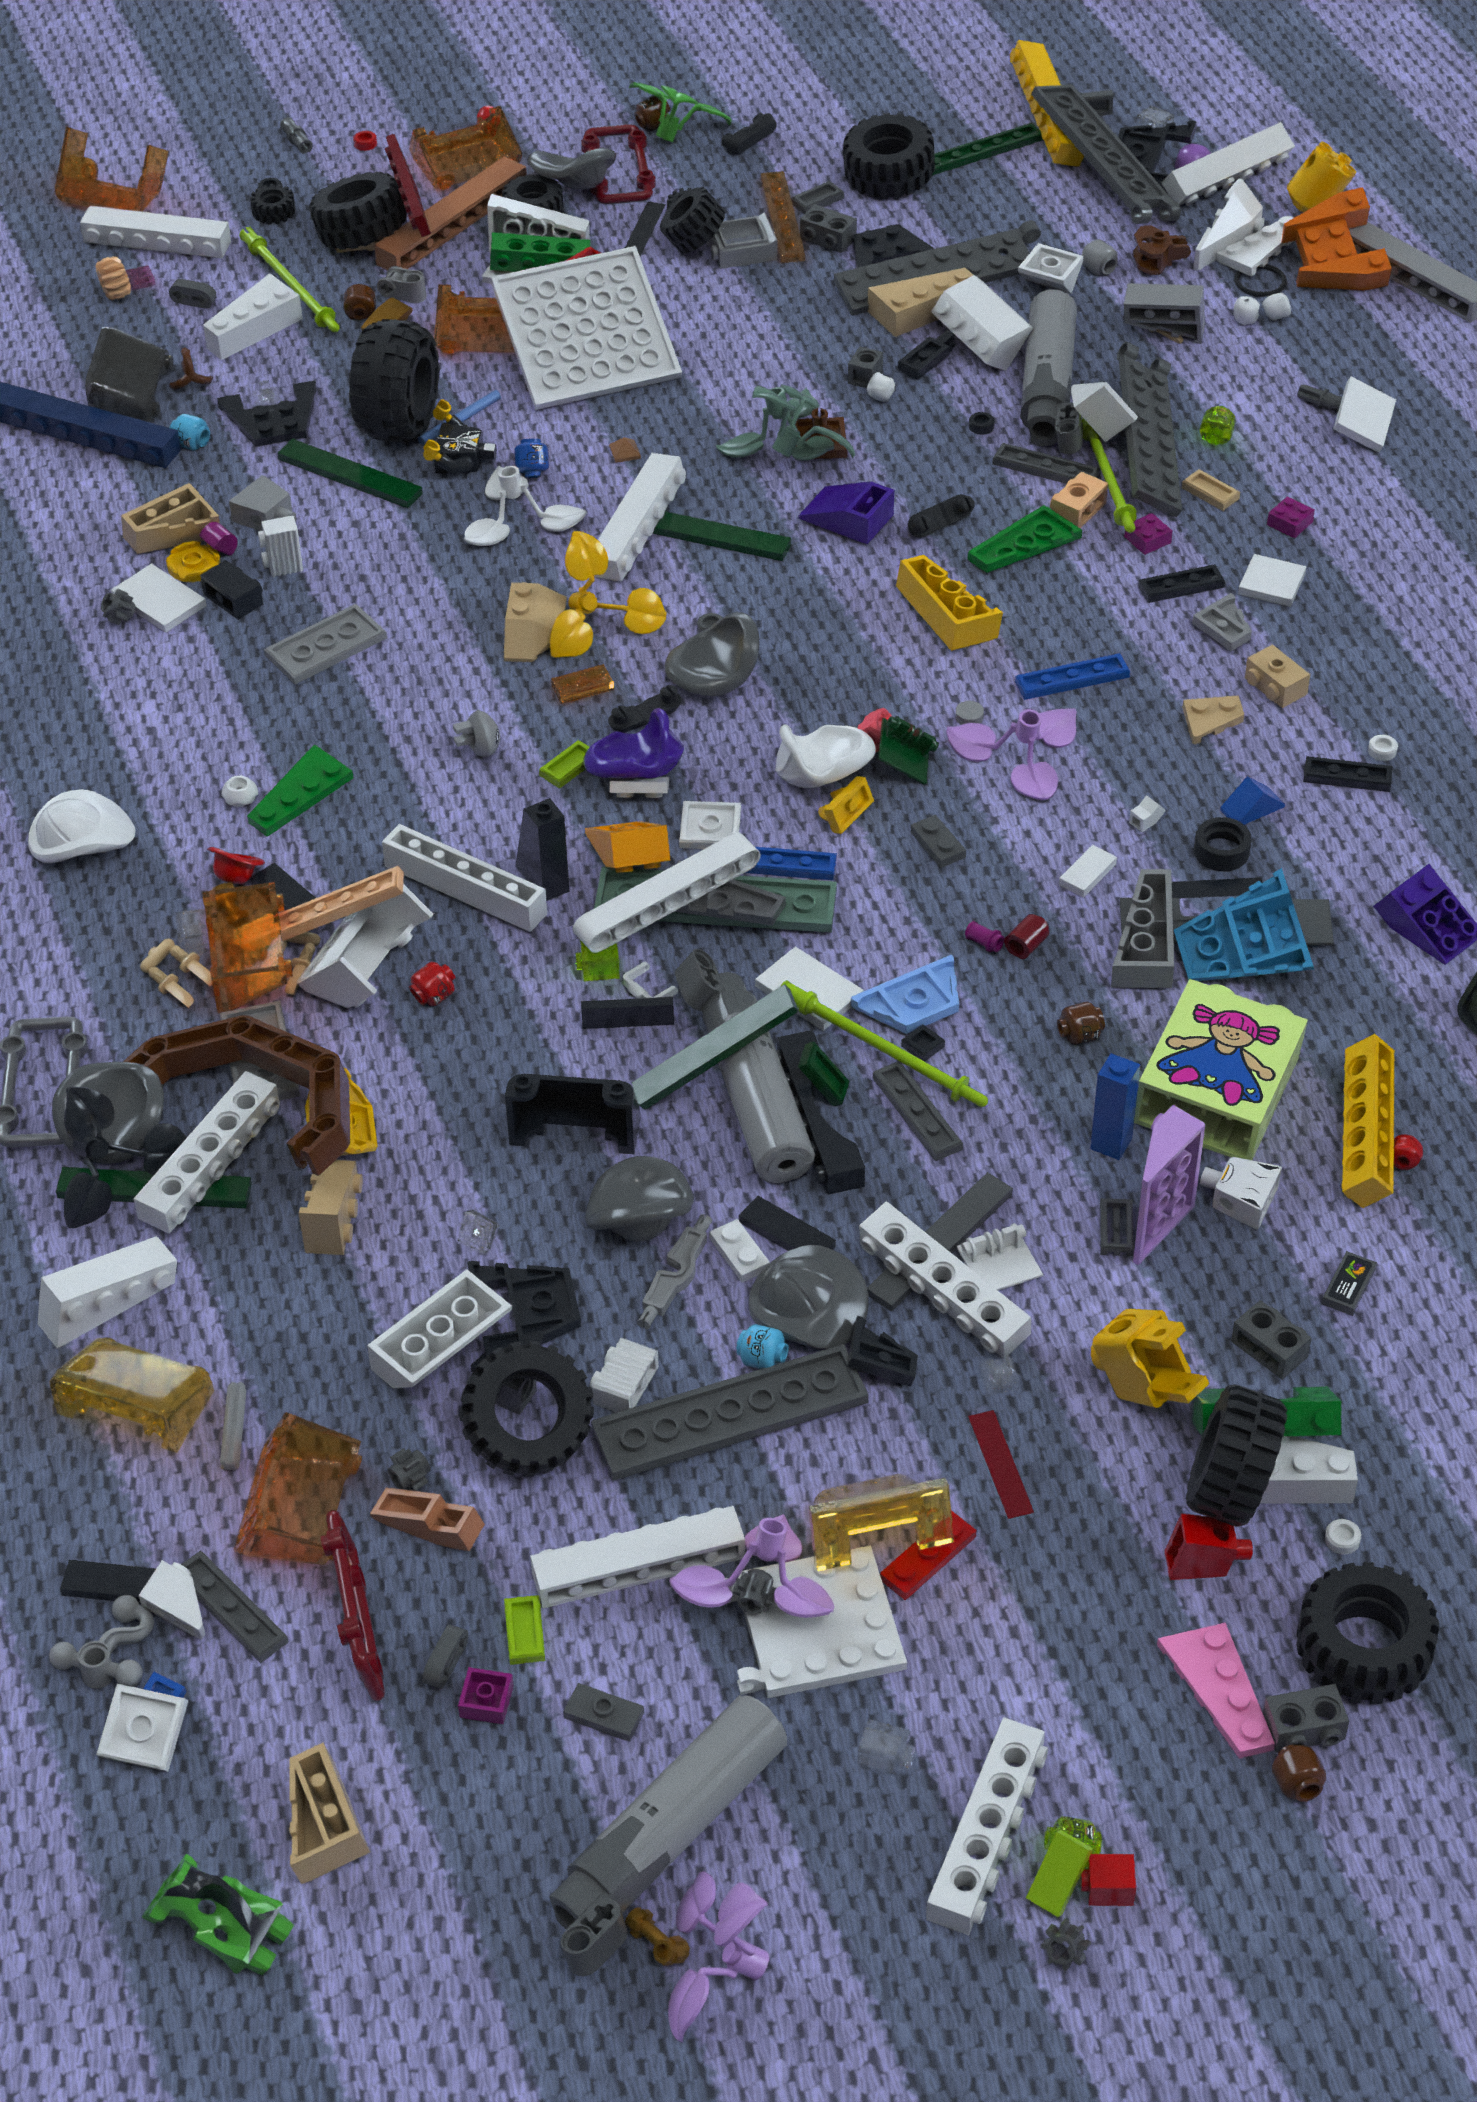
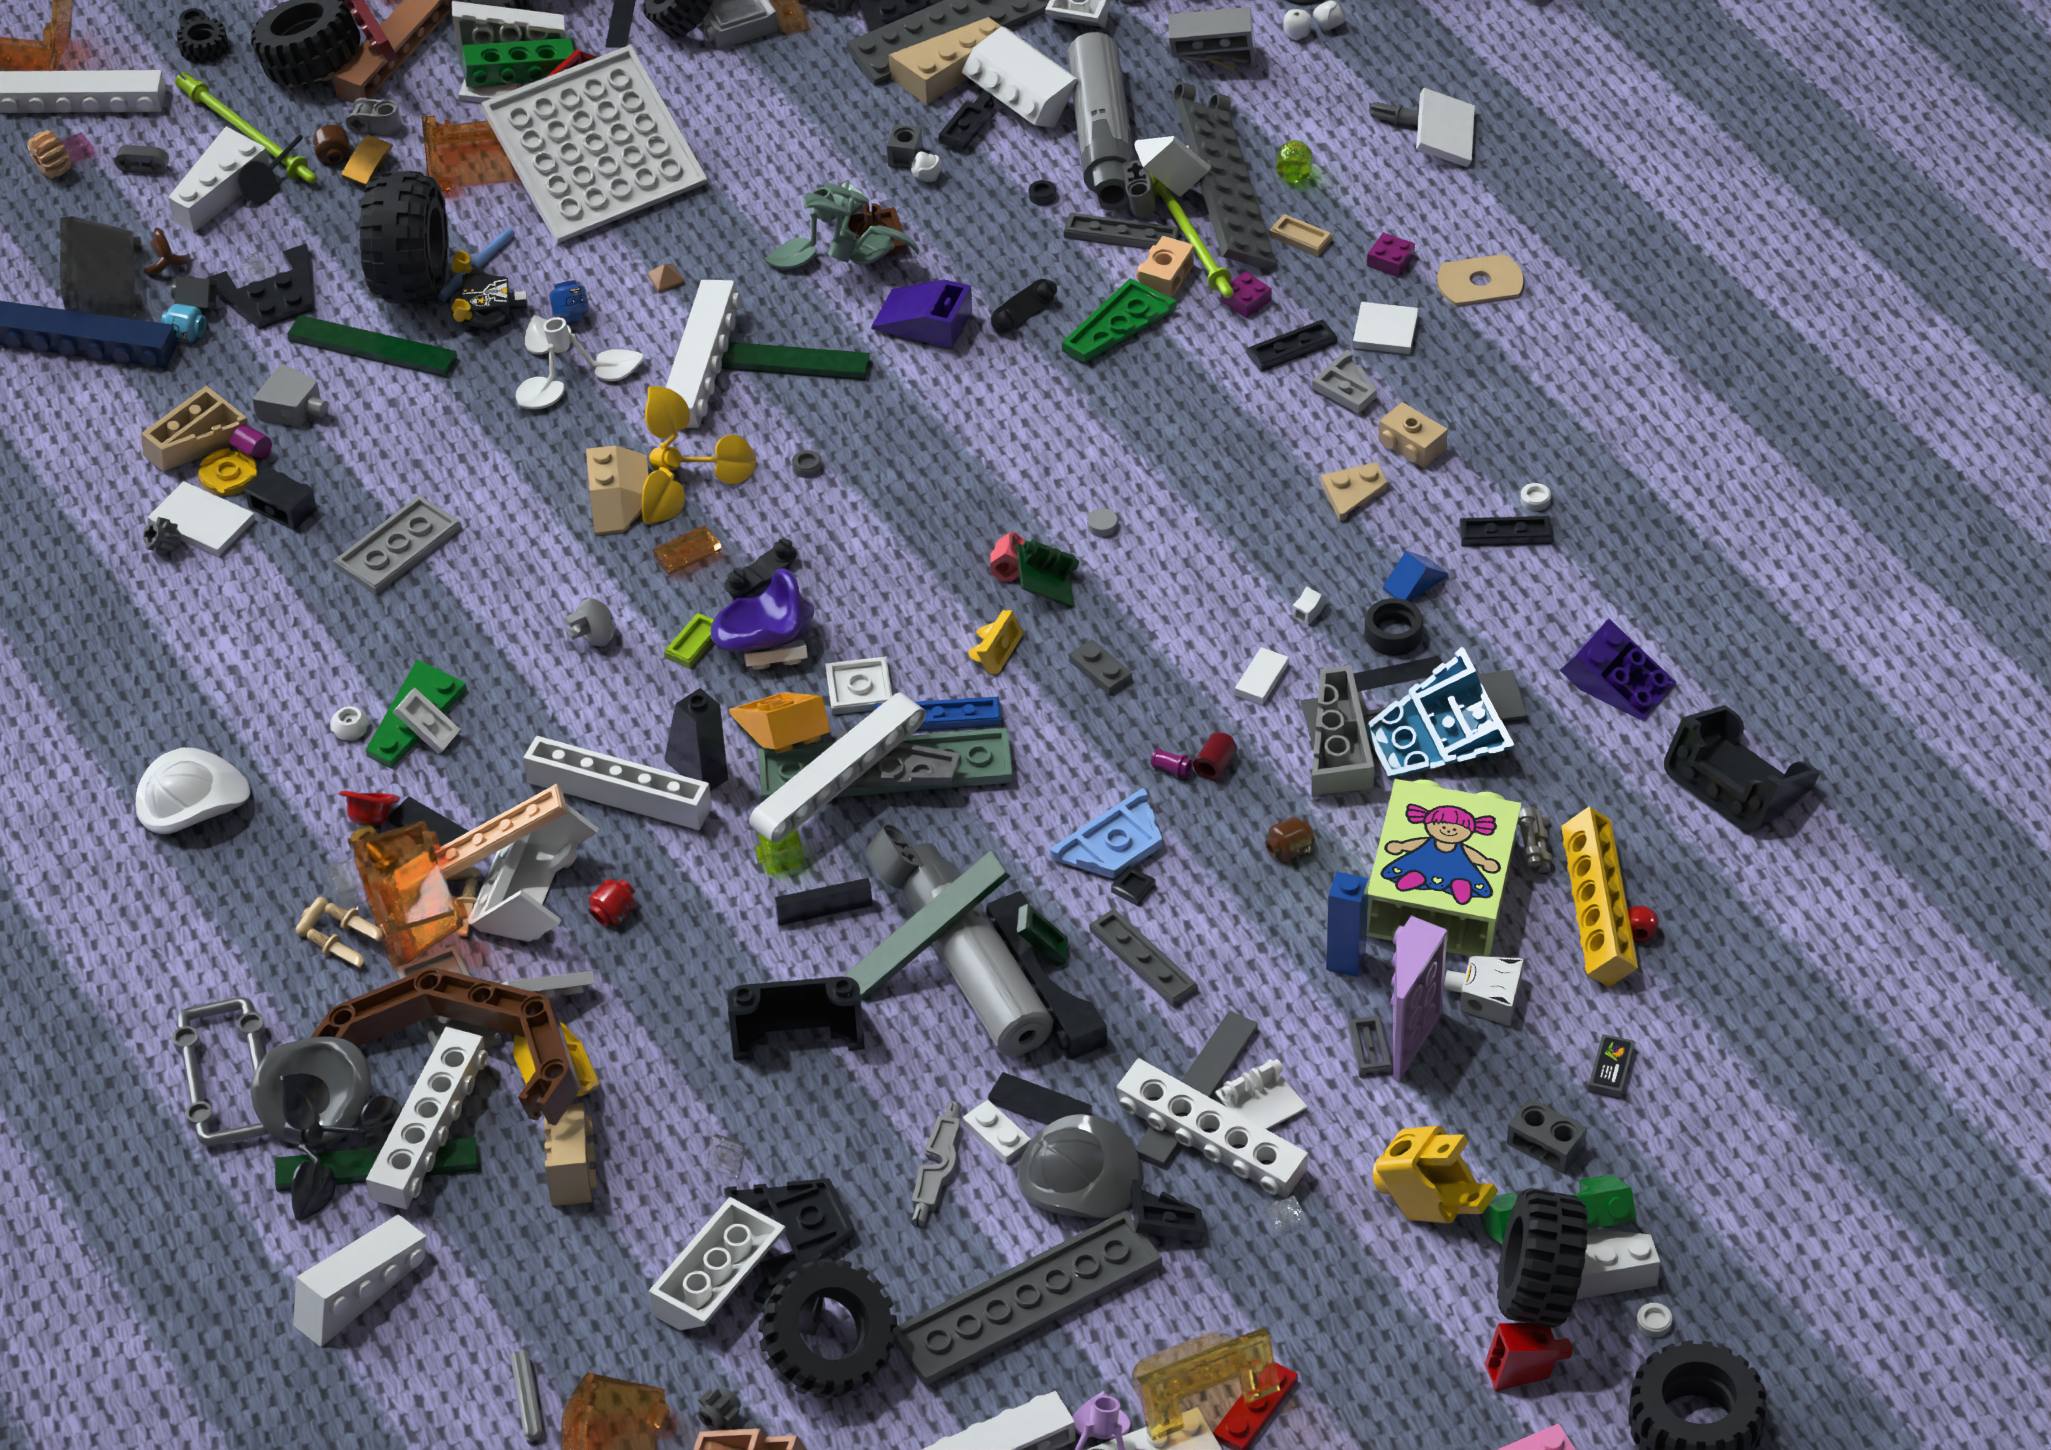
camera: 10 degrees left, 0 degrees up
(134, 1386) = (416, 1373): clear yellow windscreen -> none
(206, 406) = (195, 291): none -> dark grey brick
(281, 546) = (324, 442): white brick -> none
(287, 322) = (258, 180): none -> black piece
(306, 797) = (426, 720): none -> white plate
(351, 1049) = (569, 983): none -> white wing
(624, 1376) = (913, 1278): white brick -> none
(636, 990) = (827, 876): white piece -> none
(639, 1198) = (883, 1094): dark grey piece -> none
(716, 657) = (824, 499): dark grey piece -> none
(762, 1347) = (1044, 1226): medium azure head -> none
(808, 1003) = (1180, 927): lime bar -> none
(812, 976) = (1018, 845): white tile -> none
(822, 755) = (962, 592): white piece -> none
(946, 604) = (1052, 406): yellow wedge -> none
(1001, 1464) = (1306, 1305): dark red sticker -> none
(1035, 780) = (1193, 524): lavender plant -> none
(1072, 676) = (1200, 465): blue tile -> none
(1317, 1056) = (1535, 838): none -> light grey piece
(1347, 553) = (1456, 287): none -> tan piece

